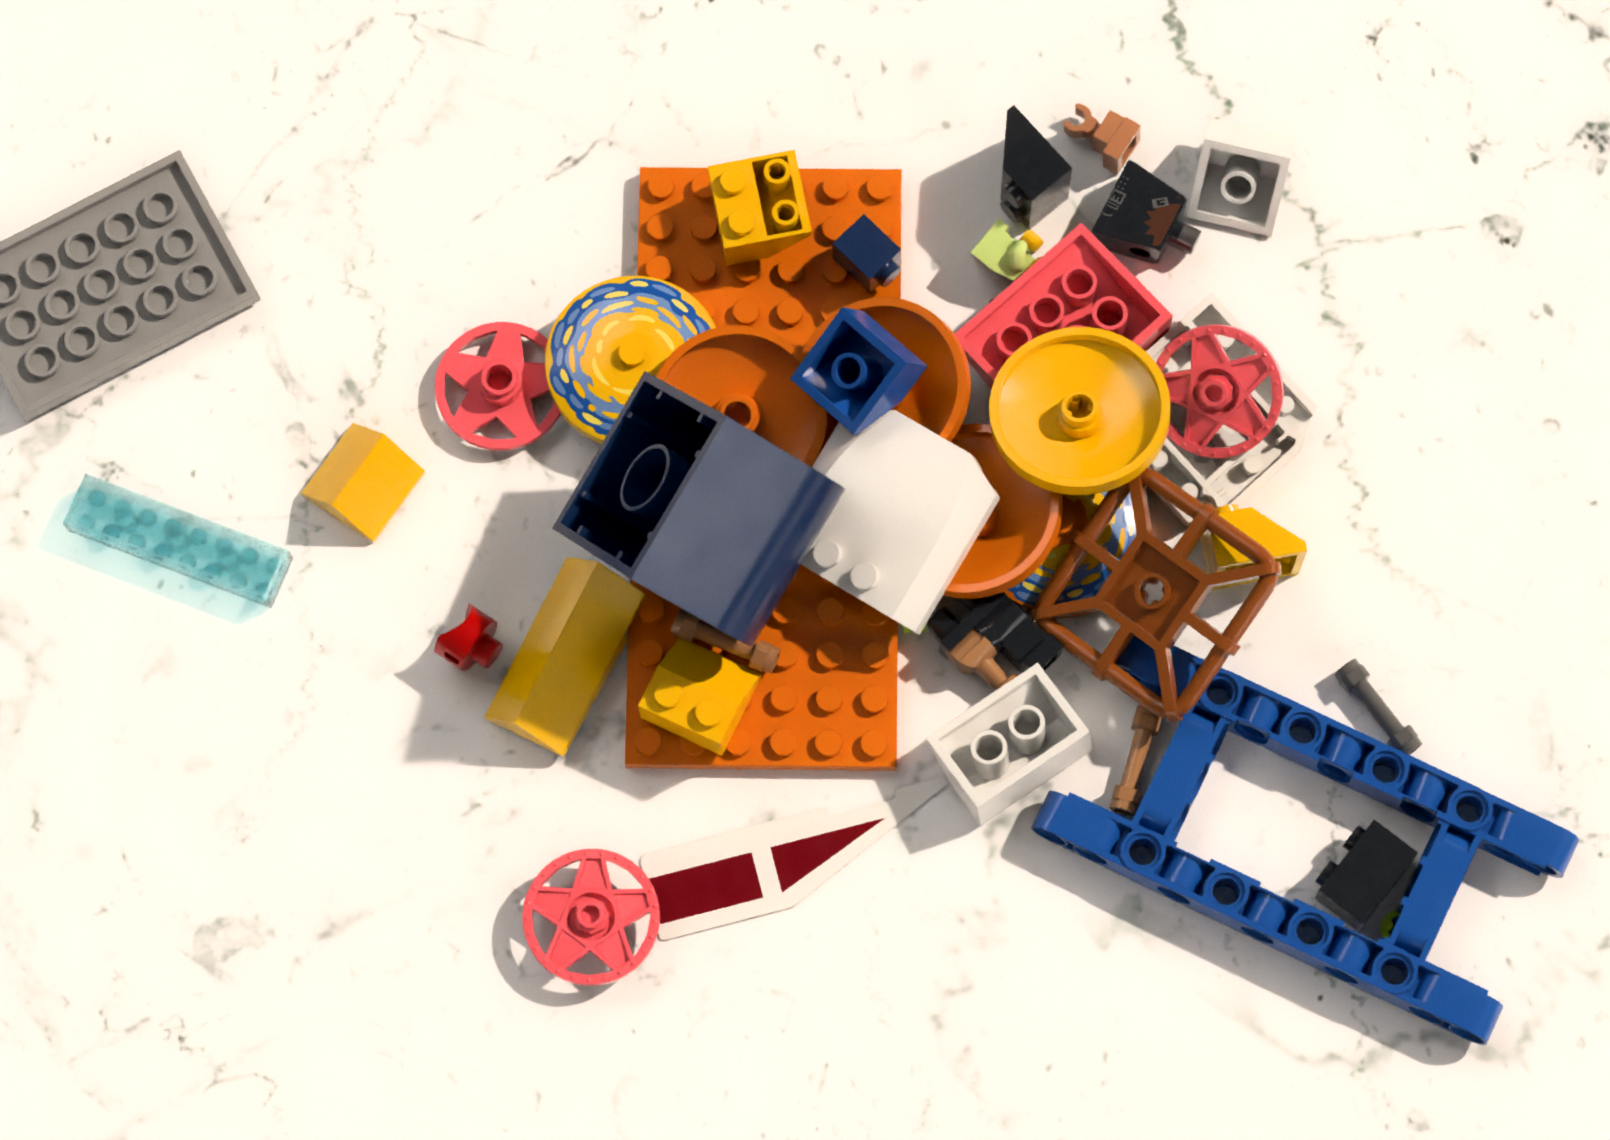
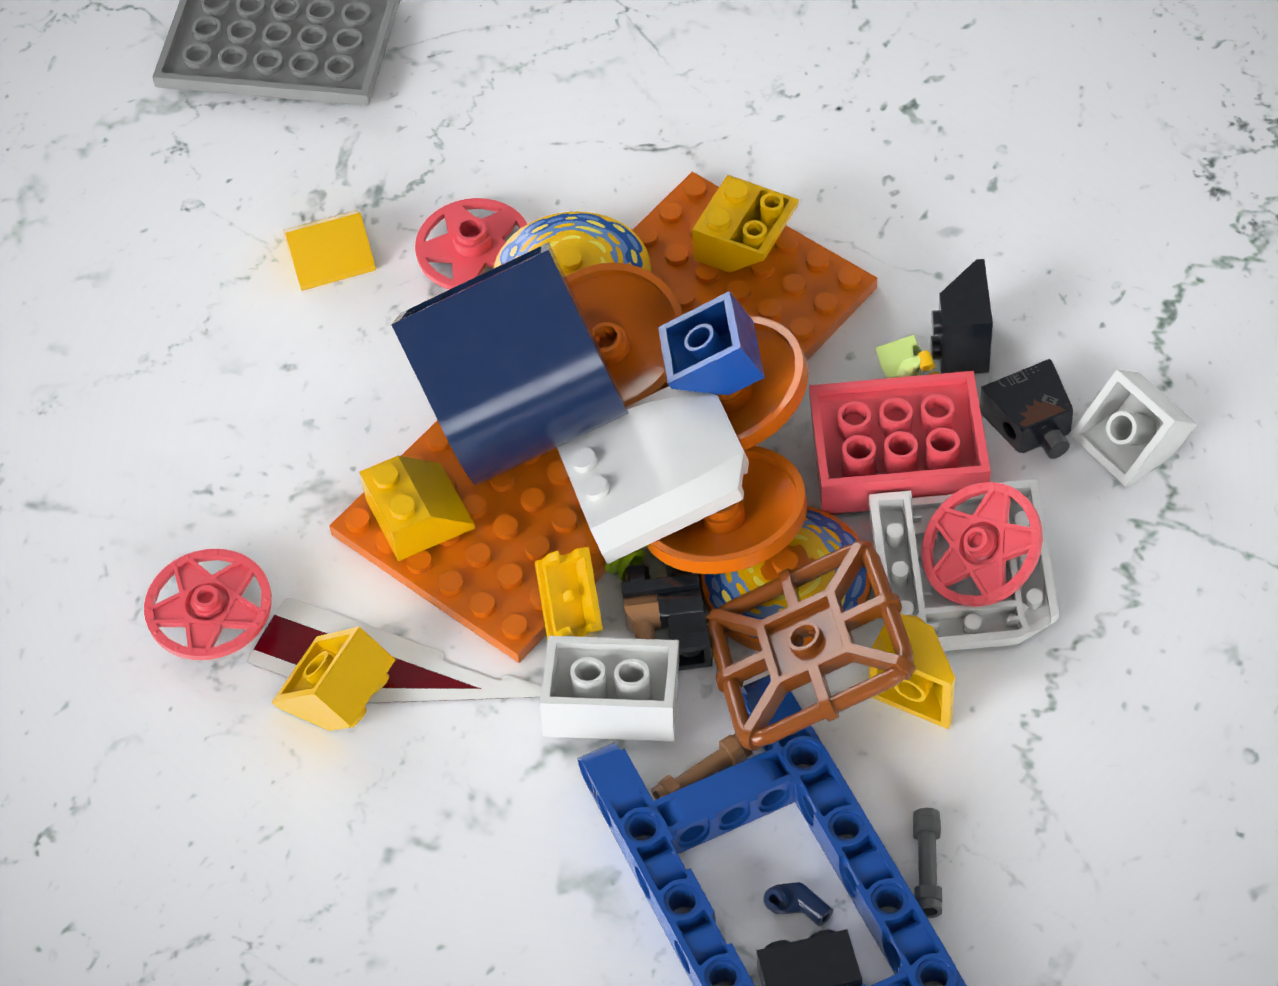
camera: 40 degrees right, 20 degrees down
(178, 540) = (176, 207): clear light blue piece -> none
(470, 641) = (298, 377): red piece -> none
(566, 655) = (353, 434): yellow slope -> none
(762, 655) = (482, 506): medium nougat bar -> none
(763, 905) = (336, 679): none -> yellow slope
(867, 254) = (798, 301): dark blue brick -> none
(906, 685) = (569, 594): none -> yellow hinge
(1079, 410) = (855, 479): yellow dish -> none
(1112, 138) = (1053, 342): nougat piece -> none
(1301, 816) = (797, 898): none -> dark blue arm

